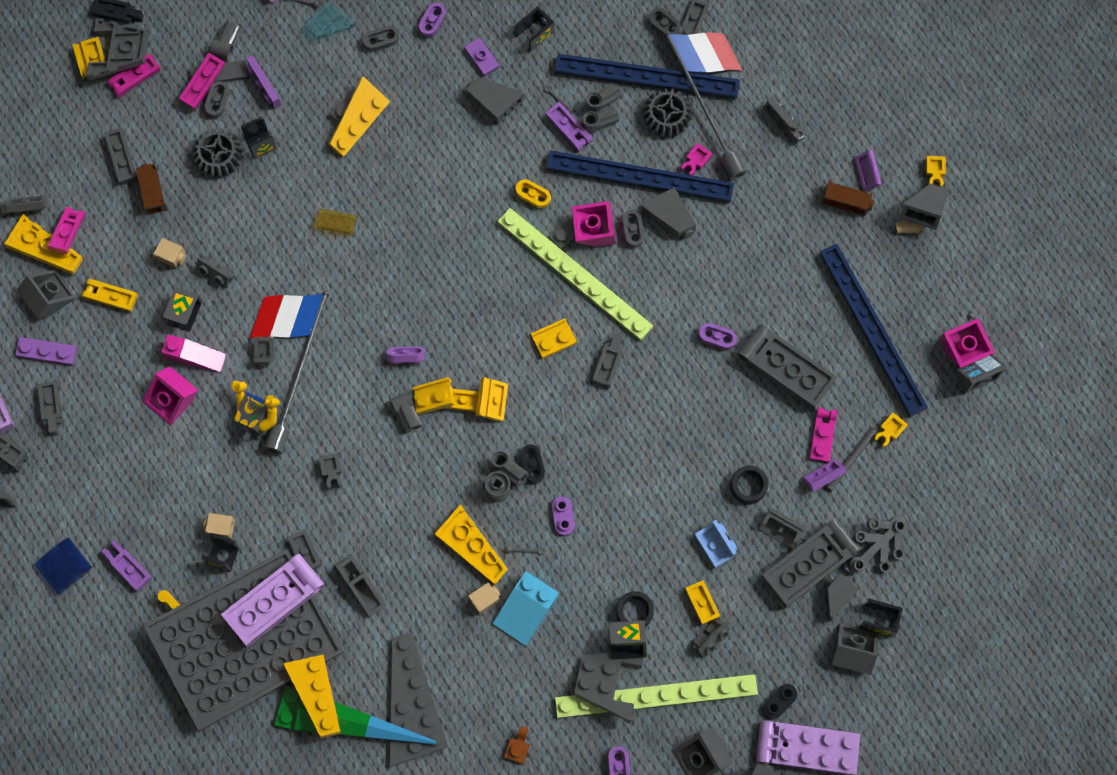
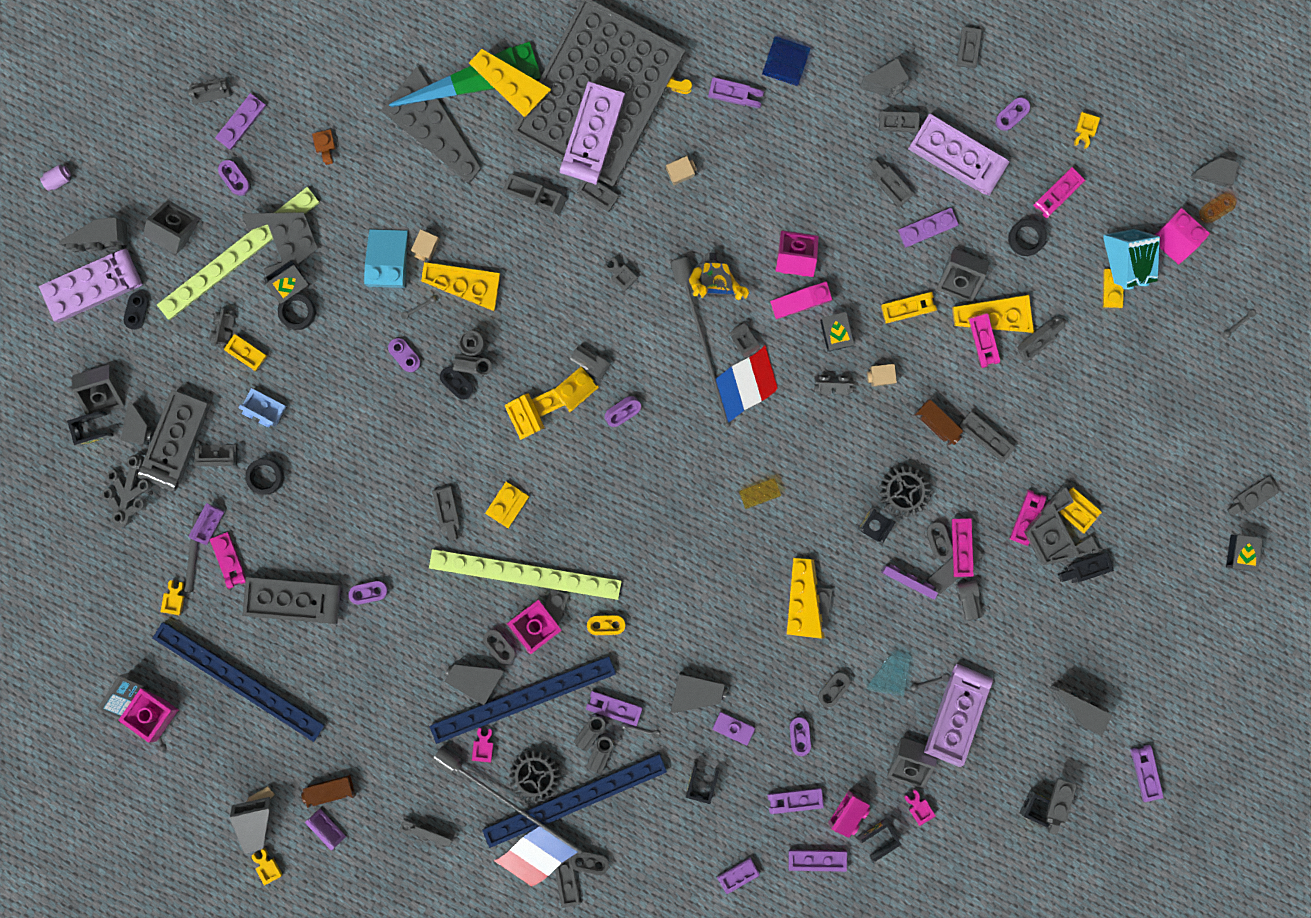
camera: 150 degrees right, 15 degrees up
(222, 543) = (659, 139): black piece -> none

